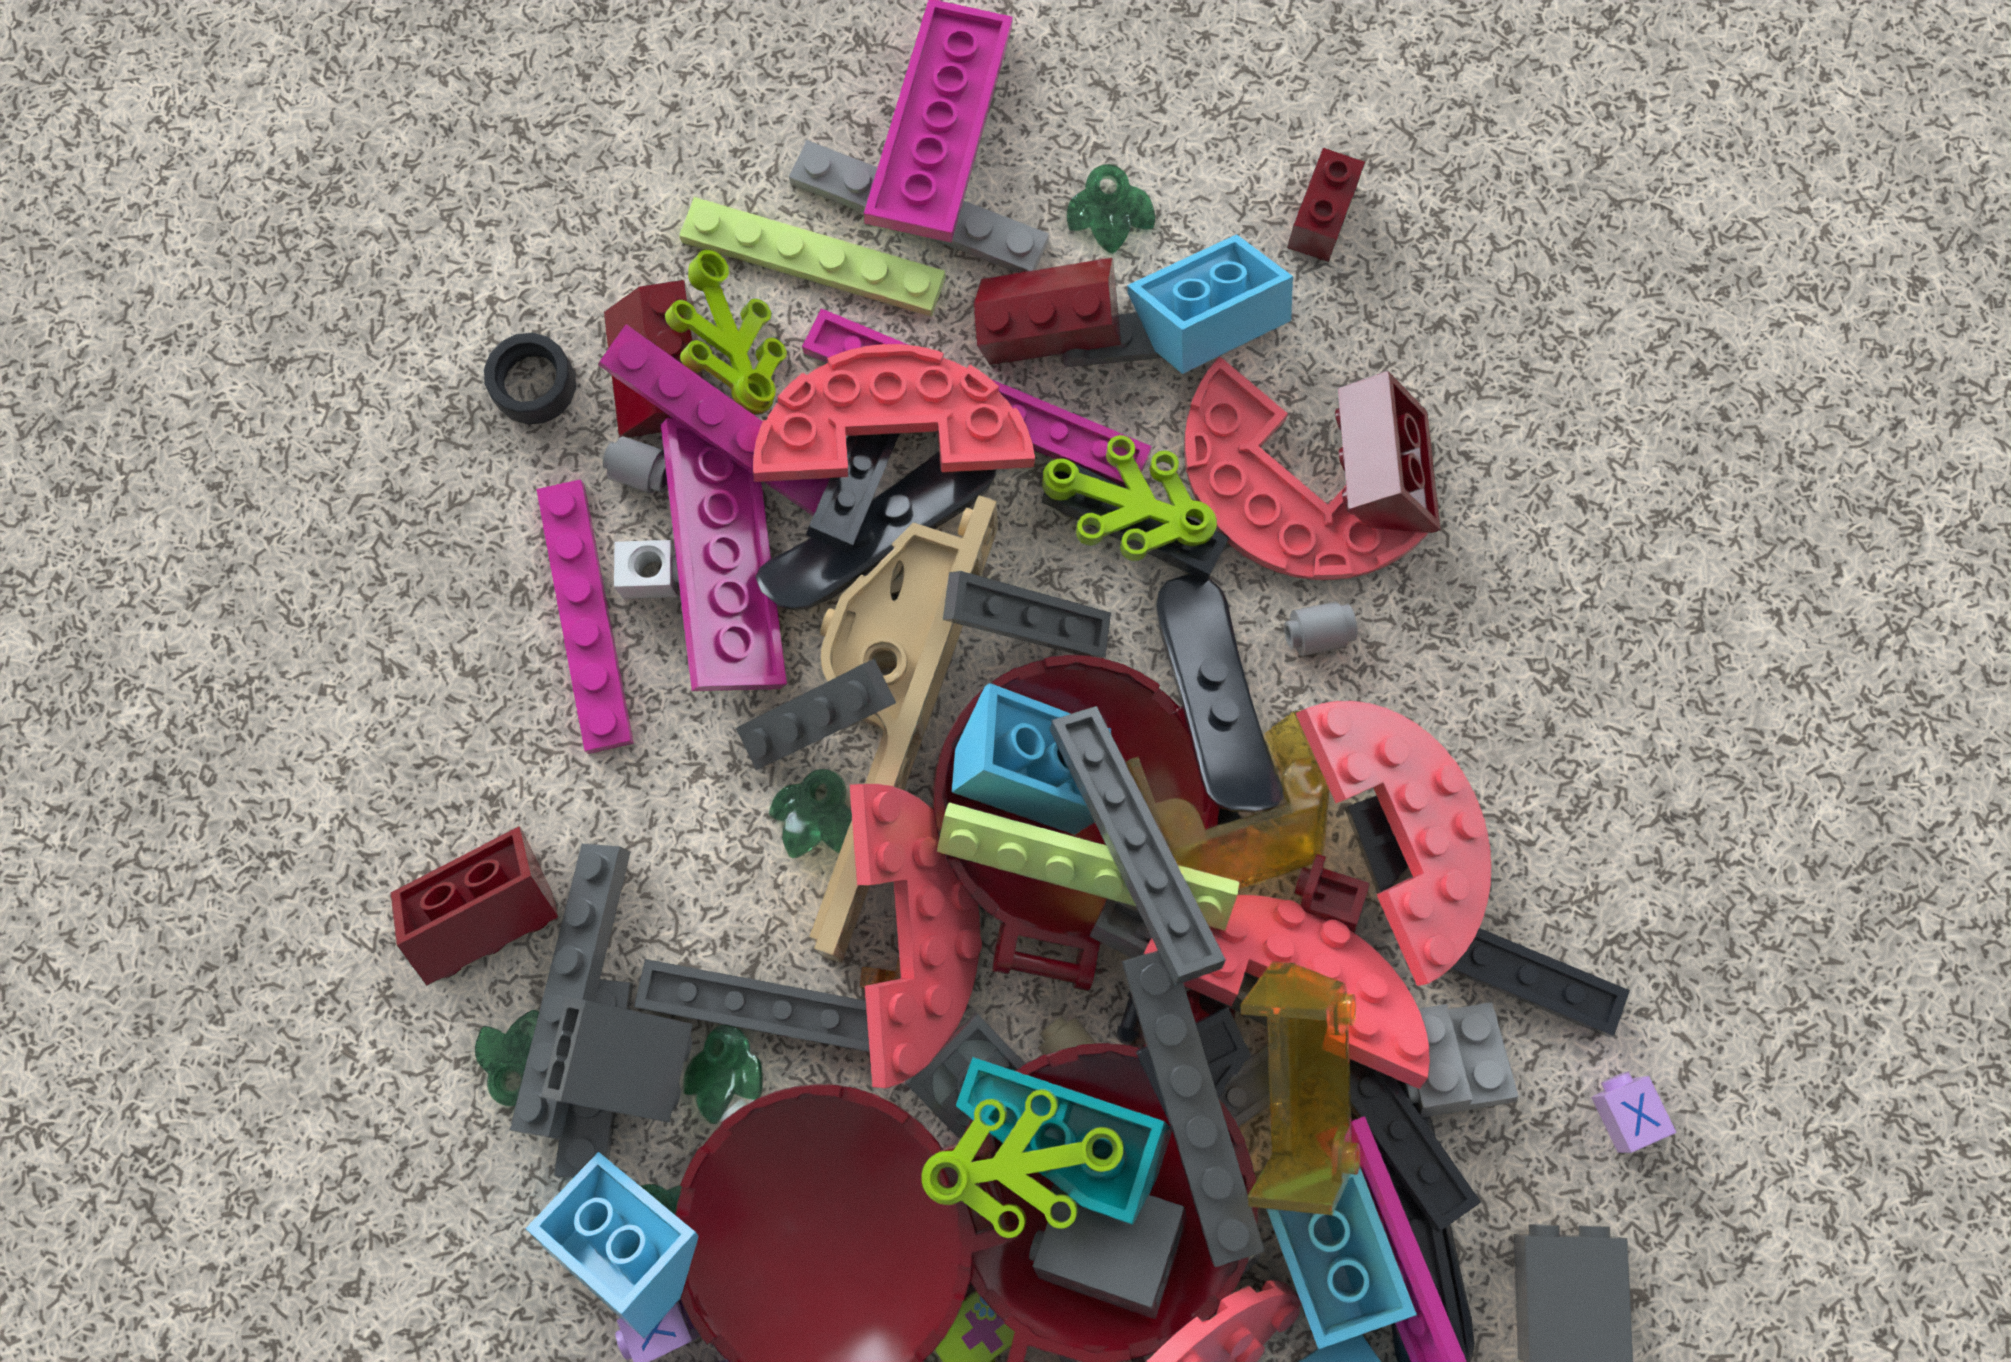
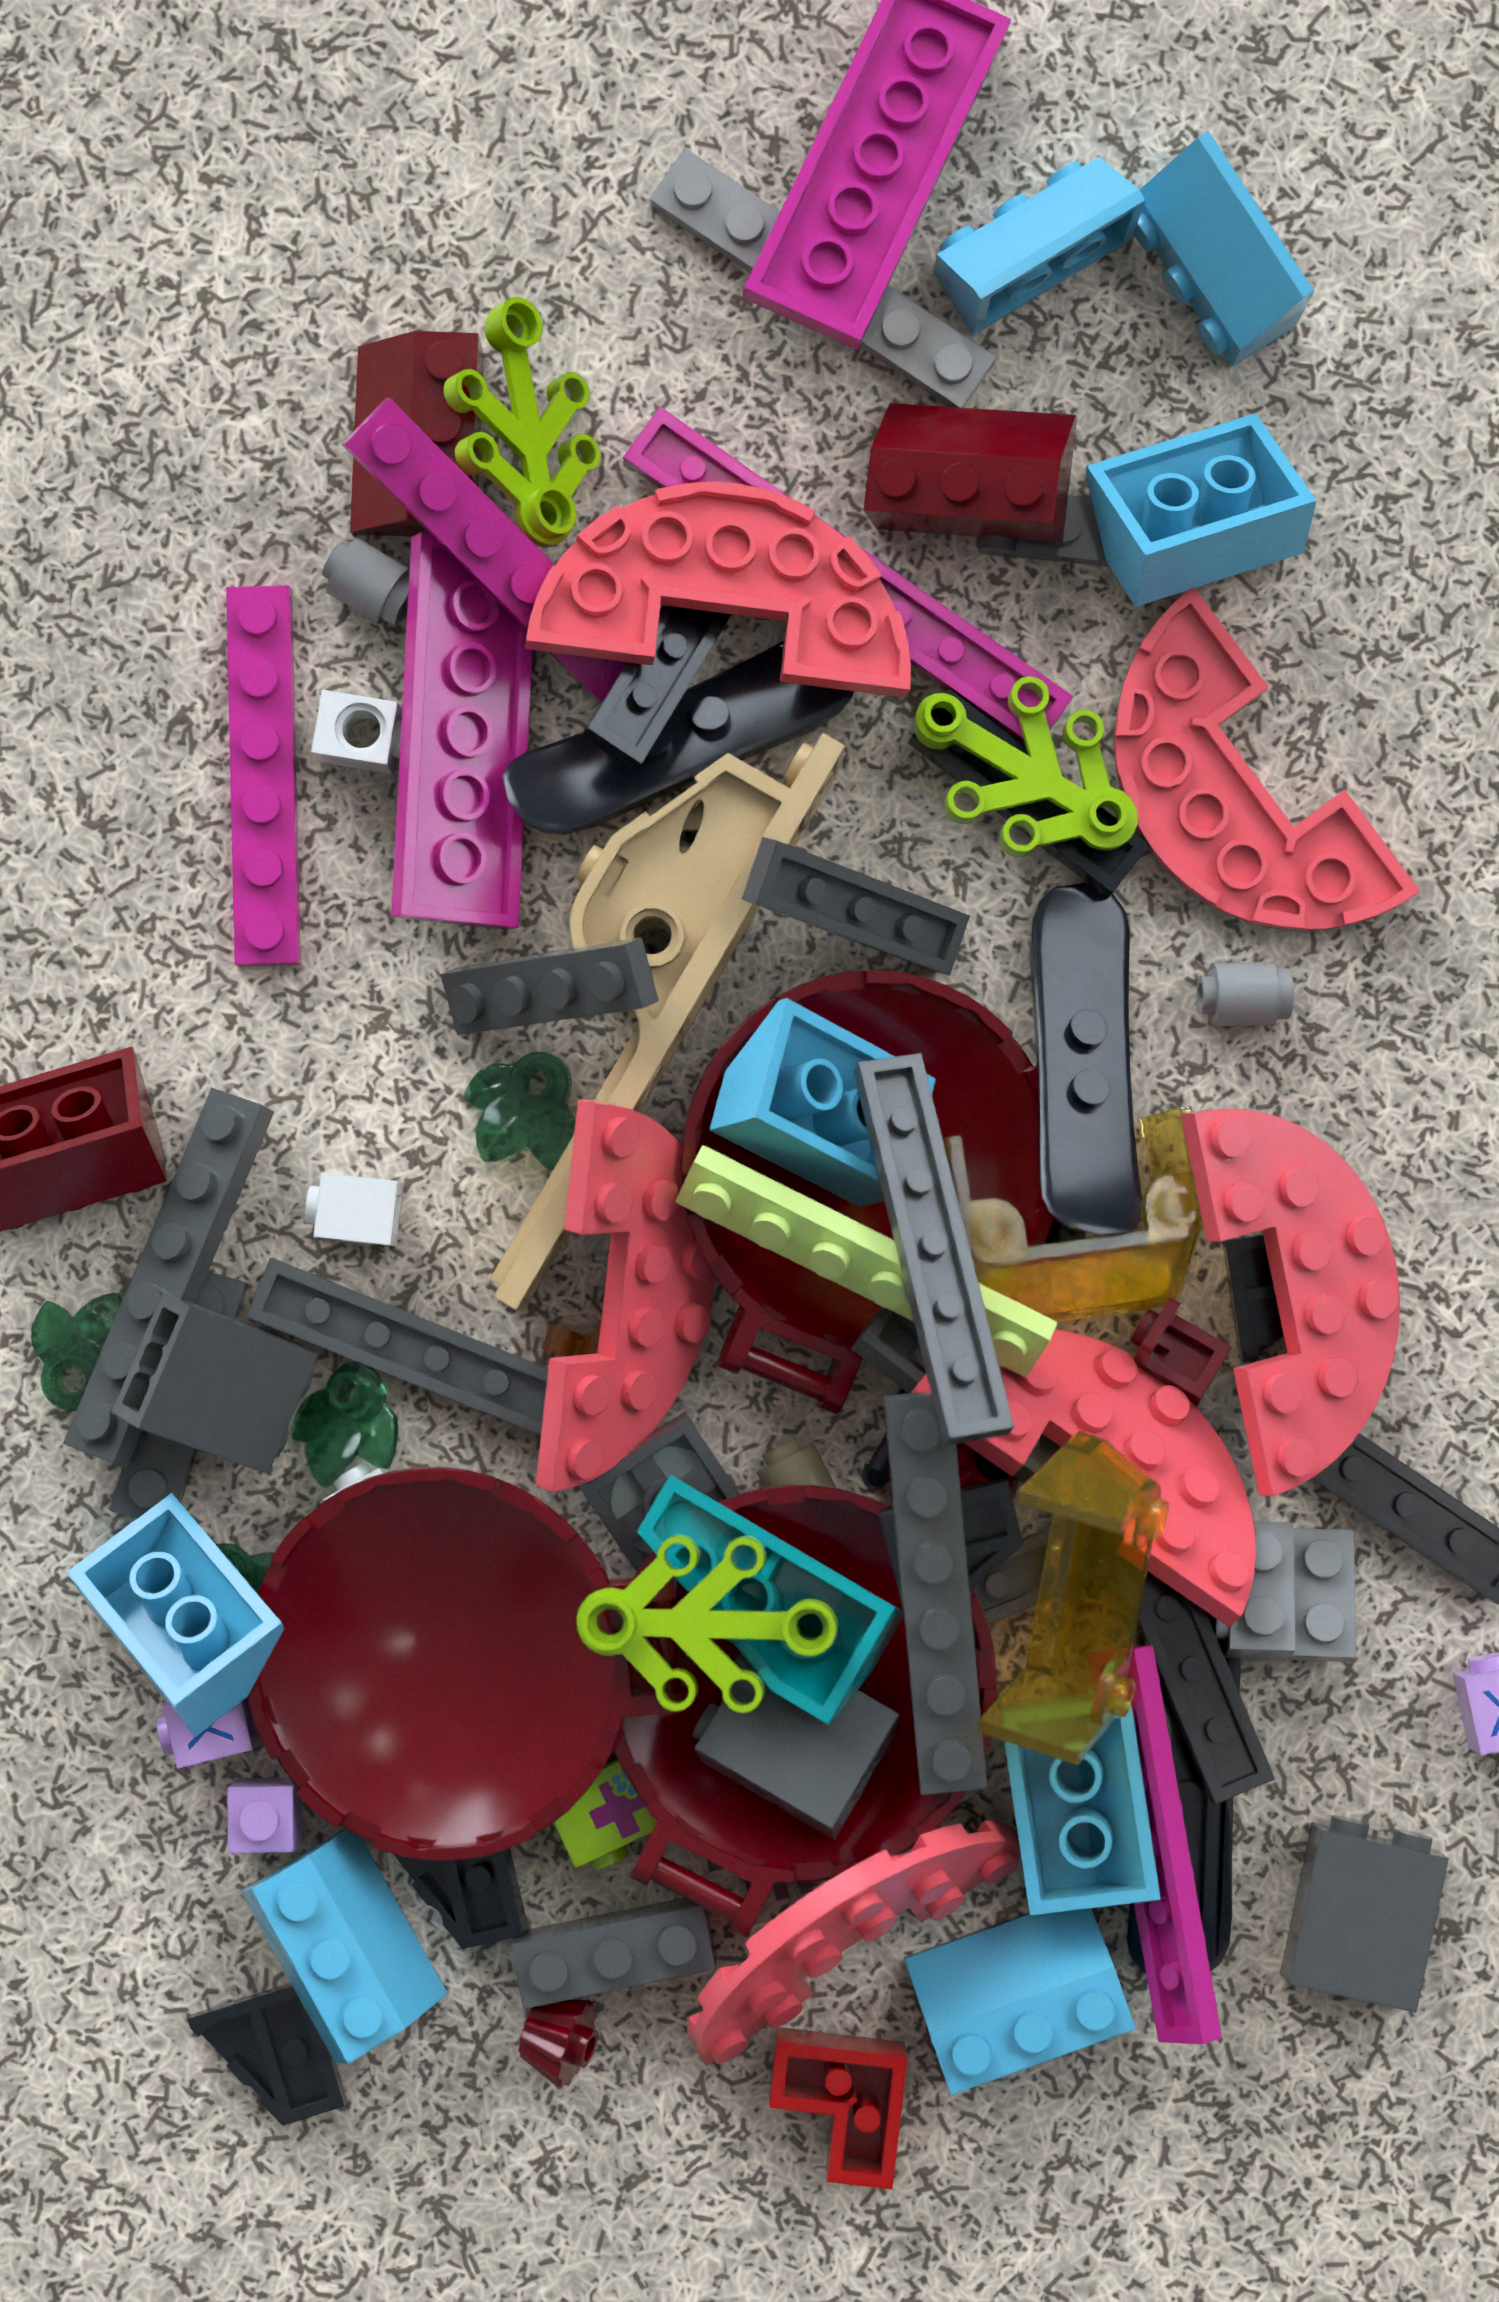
camera: 10 degrees right, 10 degrees up
(515, 349) = (230, 379): black tyre -> none
(702, 910) = (355, 1209): none -> white brick
(812, 256) = (661, 322): yellowish green plate -> none
(1062, 152) = (1038, 241): none -> medium azure slope
(1113, 213) = (1088, 345): clear green plate -> none
(1188, 132) = (1221, 252): none -> medium azure slope
(1325, 204) = (1390, 394): dark red brick -> none
(1387, 456) = (1388, 778): slope -> none

